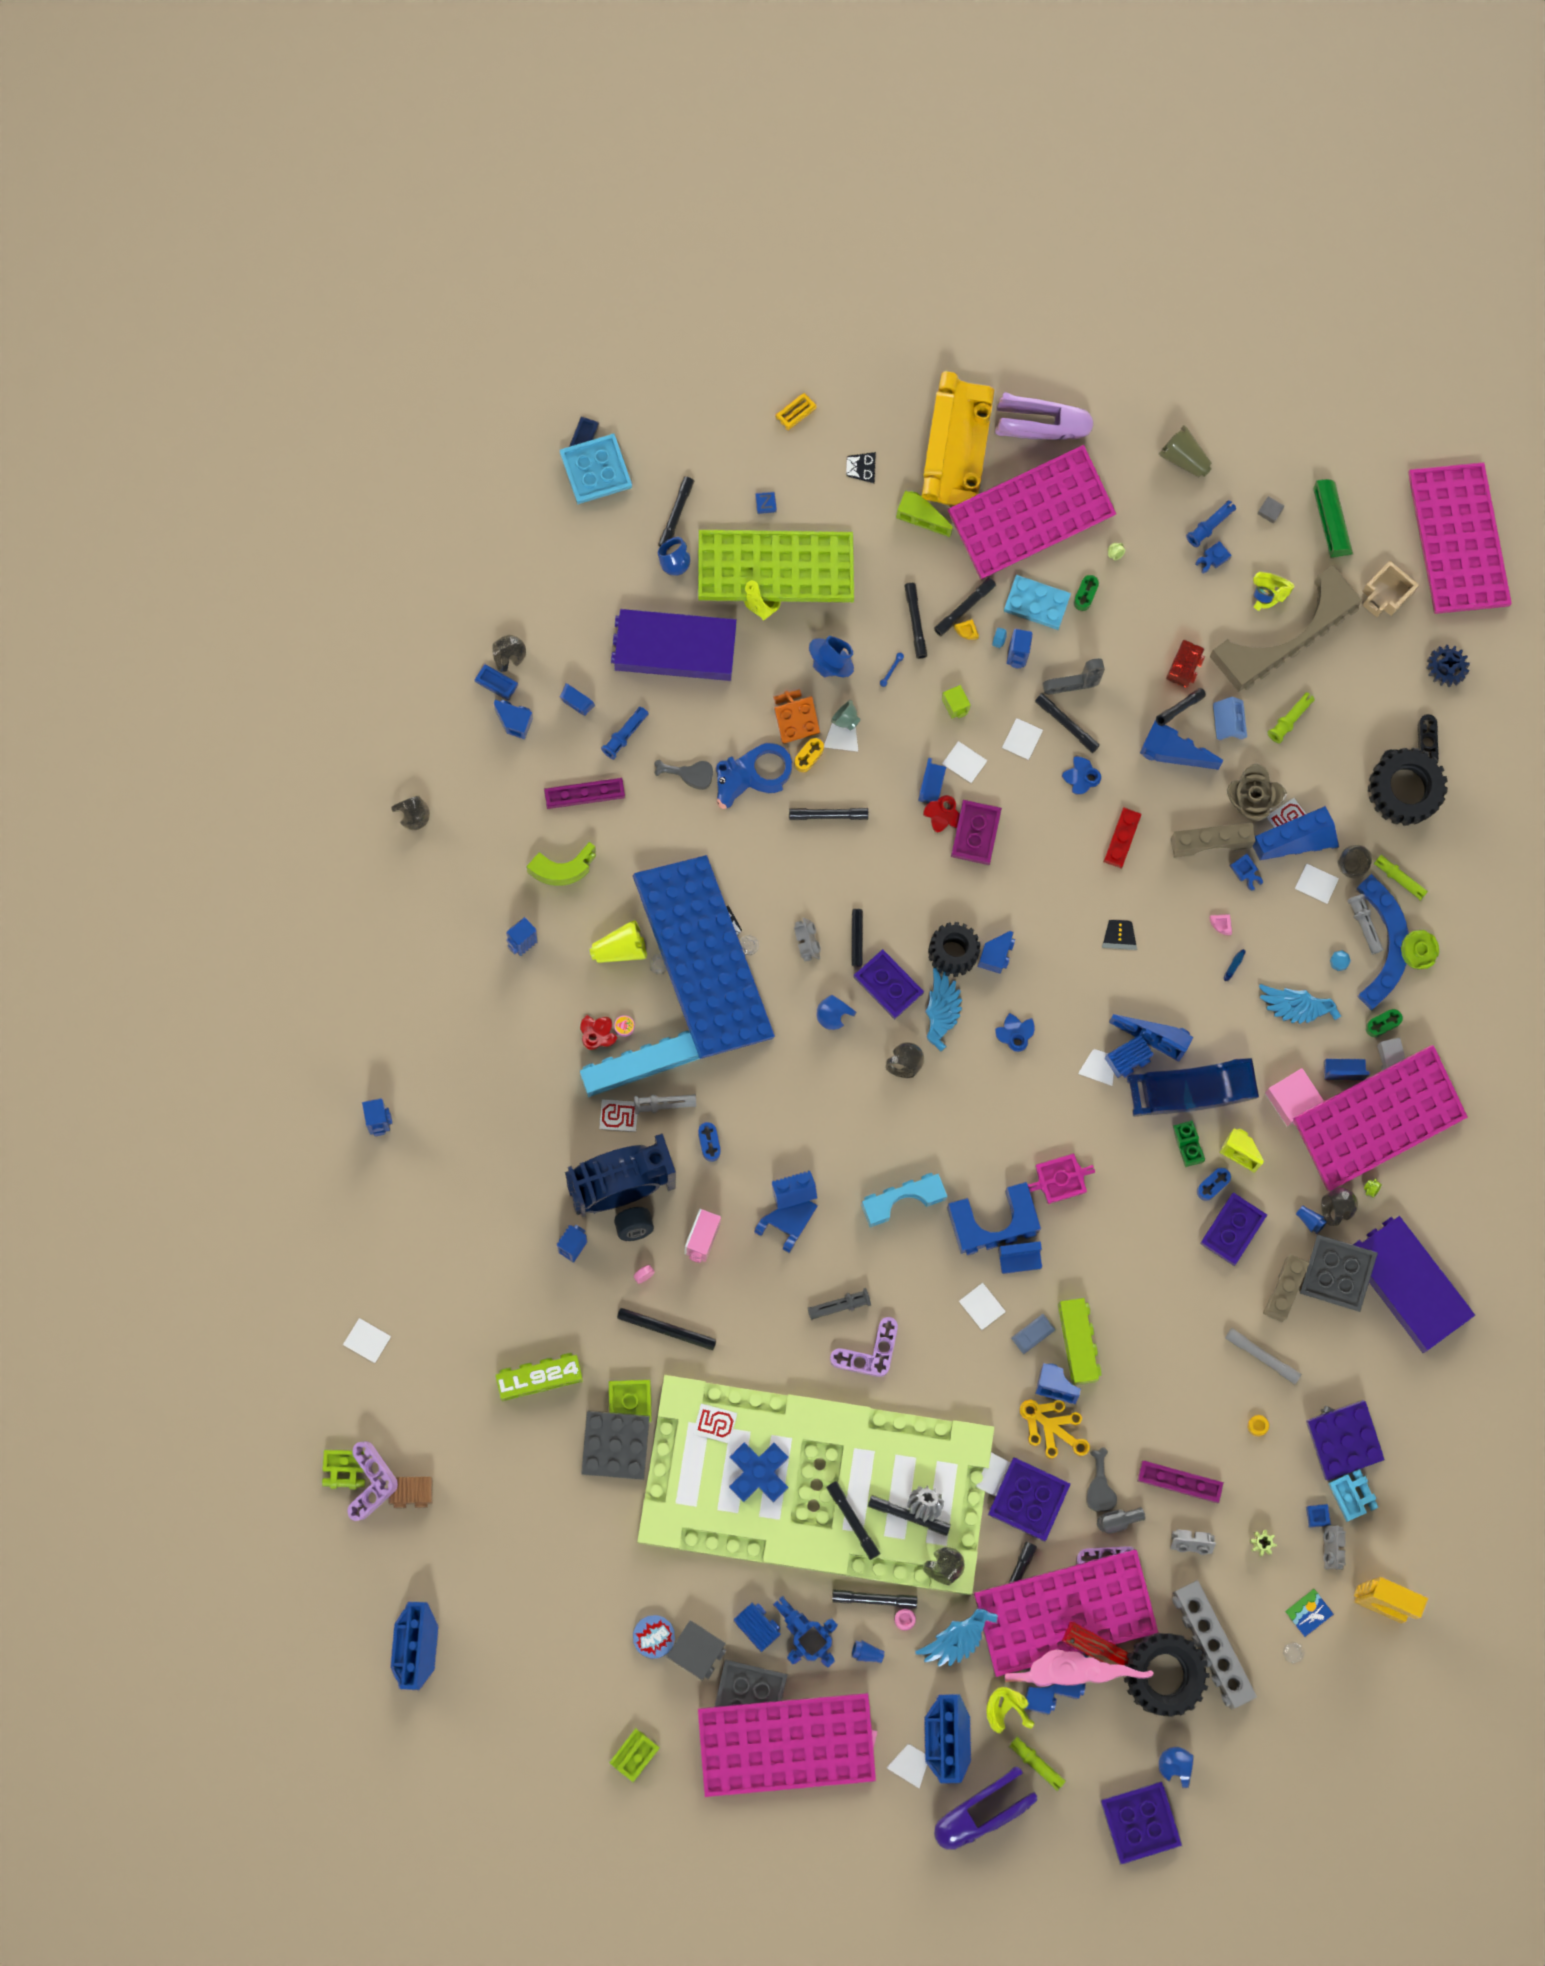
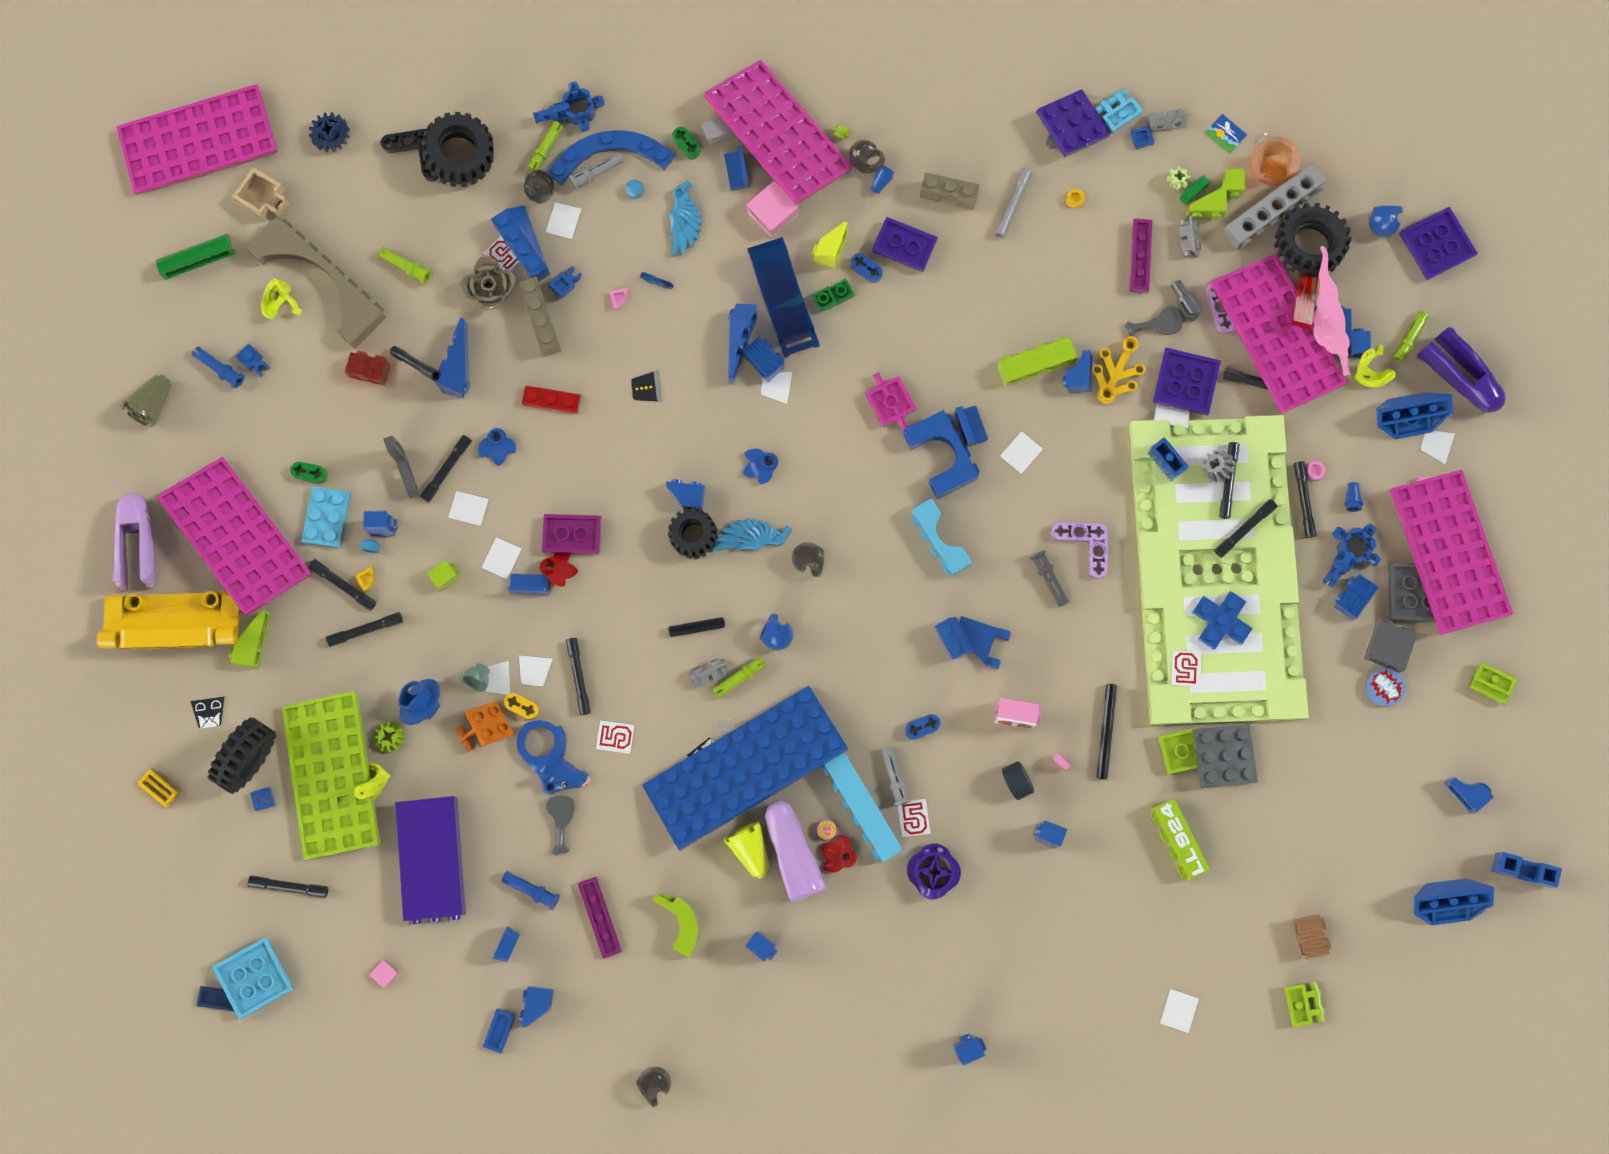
camera: 90 degrees left, 5 degrees up
(377, 1484) = (1316, 967): lavender beam -> none
(429, 1736) = (1527, 871): none -> blue arch
(508, 648) = (464, 1026): clear smoke helmet -> none
(519, 1699) = (1471, 796): none -> blue arch
(573, 586) = (384, 974): none -> bright pink tile
(578, 1128) = (932, 892): none -> dark purple piece
(602, 985) = (793, 854): none -> lavender piece
(620, 1177) = (983, 798): dark blue brick -> none
(677, 561) = (342, 874): blue helmet -> none
(760, 839) = (615, 737): none -> white sticker
(797, 971) = (739, 677): none -> lime pin
(799, 633) = (397, 738): none -> lime gear
(809, 484) = (241, 755): none -> black tyre
(843, 774) = (534, 670): none -> white sticker
(888, 984) = (737, 589): dark purple plate -> none
(899, 657) = (404, 638): blue hinge -> none
(942, 1450) = (1167, 459): none -> blue brick
(949, 1565) = (1267, 434): clear smoke helmet -> none
(958, 1639) = (1324, 420): dark azure animal -> none
(1033, 1333) = (1036, 403): sand blue tile -> none
(1116, 551) = (261, 451): yellowish green plate -> none
(1227, 1577) = (1215, 204): none -> lime arch
(1230, 718) = (416, 320): medium blue panel -> none
(1246, 1558) = (1194, 190): none -> green beam
(1263, 594) = (284, 307): blue tile -> none
(1265, 1654) = (1275, 161): none -> clear orange helmet
(1270, 509) = (194, 314): flat silver tile -> none
(1339, 1273) = (927, 146): dark grey plate -> none
(1390, 1599) = (1210, 60): yellow arch -> none
(1414, 1285) = (922, 87): dark purple brick -> none
(1420, 949) = (611, 120): lime tile -> none
(1439, 901) = (562, 111): none -> blue piece

